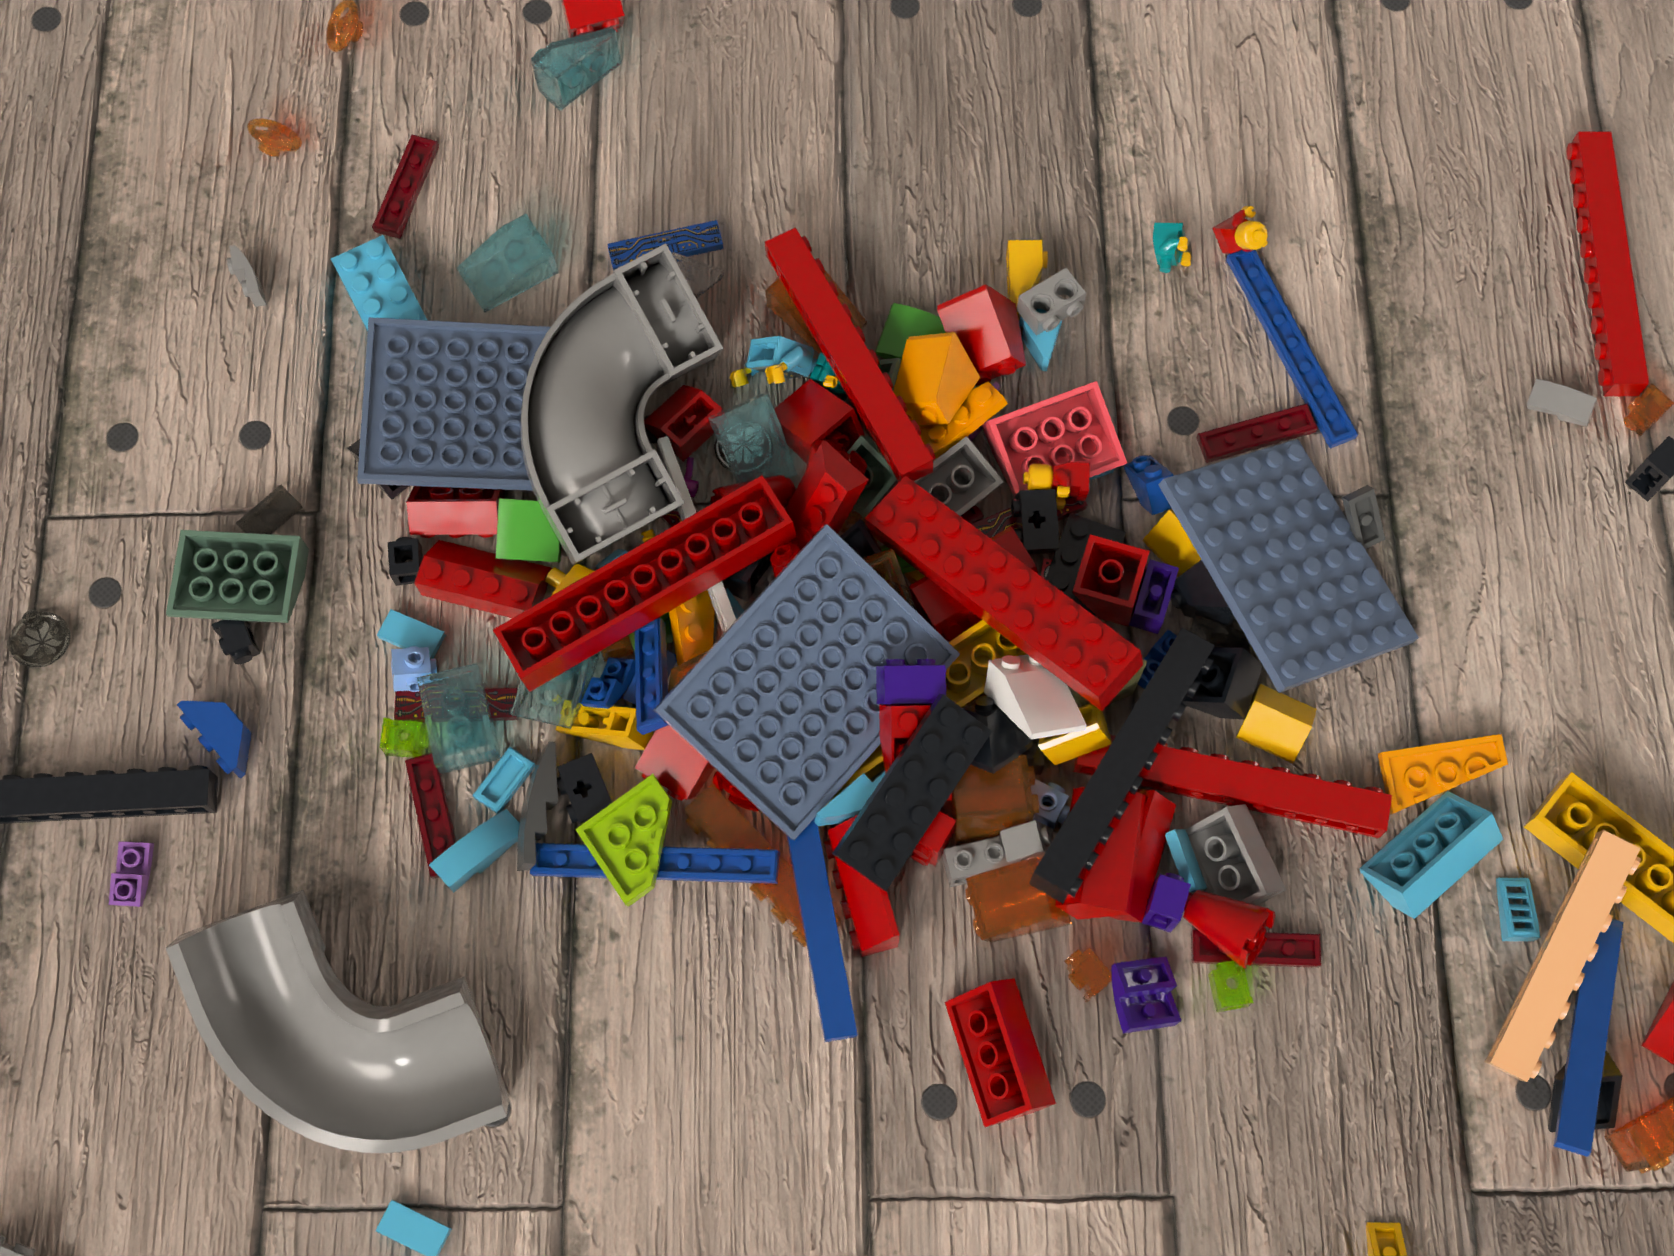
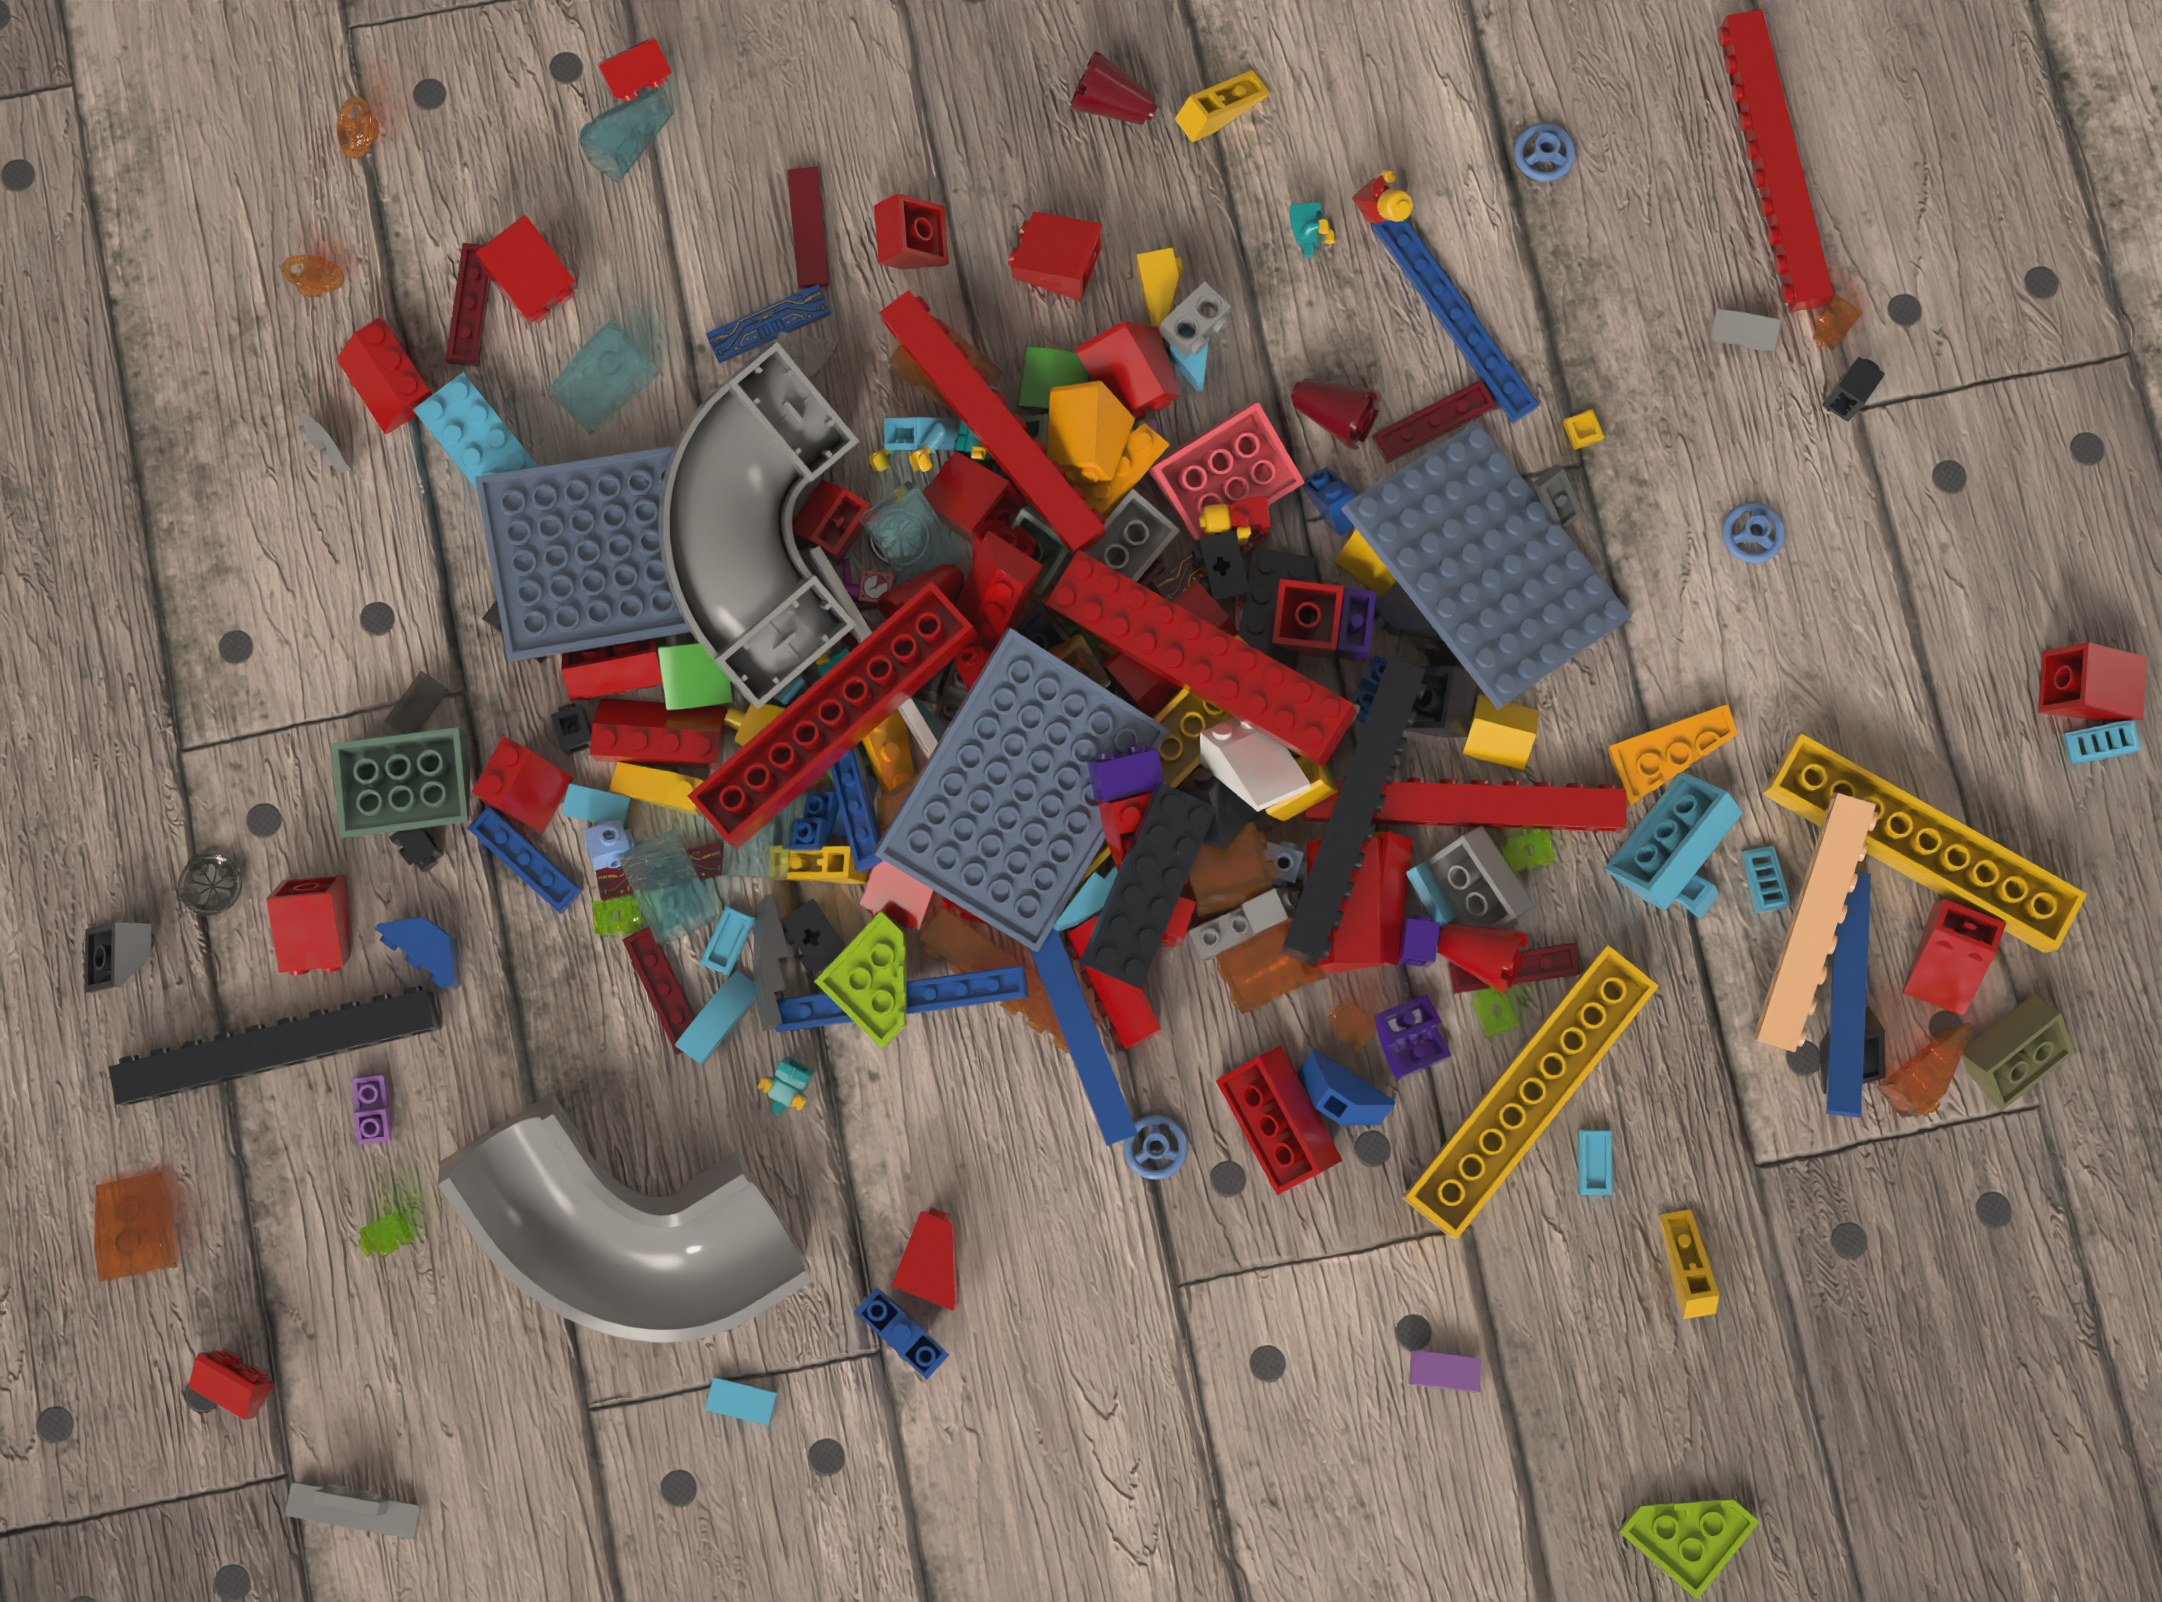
camera: 10 degrees left, 10 degrees up
(110, 996) = (385, 1235): none -> clear neon green brick
(119, 691) = (310, 924): none -> red slope
(313, 228) = (383, 375): none -> red slope
(333, 671) = (525, 859): none -> blue tile
(345, 598) = (522, 784): none -> red slope
(460, 161) = (526, 271): none -> red slope
(469, 627) = (655, 787): none -> yellow slope
(529, 925) = (787, 1085): none -> teal piece
(585, 1190) = (902, 1332): none -> blue slope
(629, 1122) = (930, 1261): none -> red slope
(709, 481) = (873, 585): none -> tile
(718, 173) = (808, 227): none -> dark red tile
(808, 191) = (910, 233): none -> red slope
(874, 1044) = (1178, 1158): none -> medium blue piece
(937, 229) = (1057, 253): none -> red slope
(1011, 106) = (1112, 93): none -> dark red cone
(1067, 1037) = (1342, 1093): none -> blue slope
(1103, 132) = (1220, 104): none -> yellow slope
(1170, 404) = (1338, 408): none -> dark red cone
(1253, 1072) = (1529, 1092): none -> yellow brick
(1280, 847) = (1519, 861): none -> clear neon green brick
(1308, 1156) = (1594, 1162): none -> medium azure tile
(1395, 464) = (1583, 429): none -> yellow tile
(1398, 209) = (1549, 139): none -> medium blue piece
(1447, 912) = (1698, 895): none -> medium azure slope
(1554, 572) = (1764, 528): none -> medium blue piece

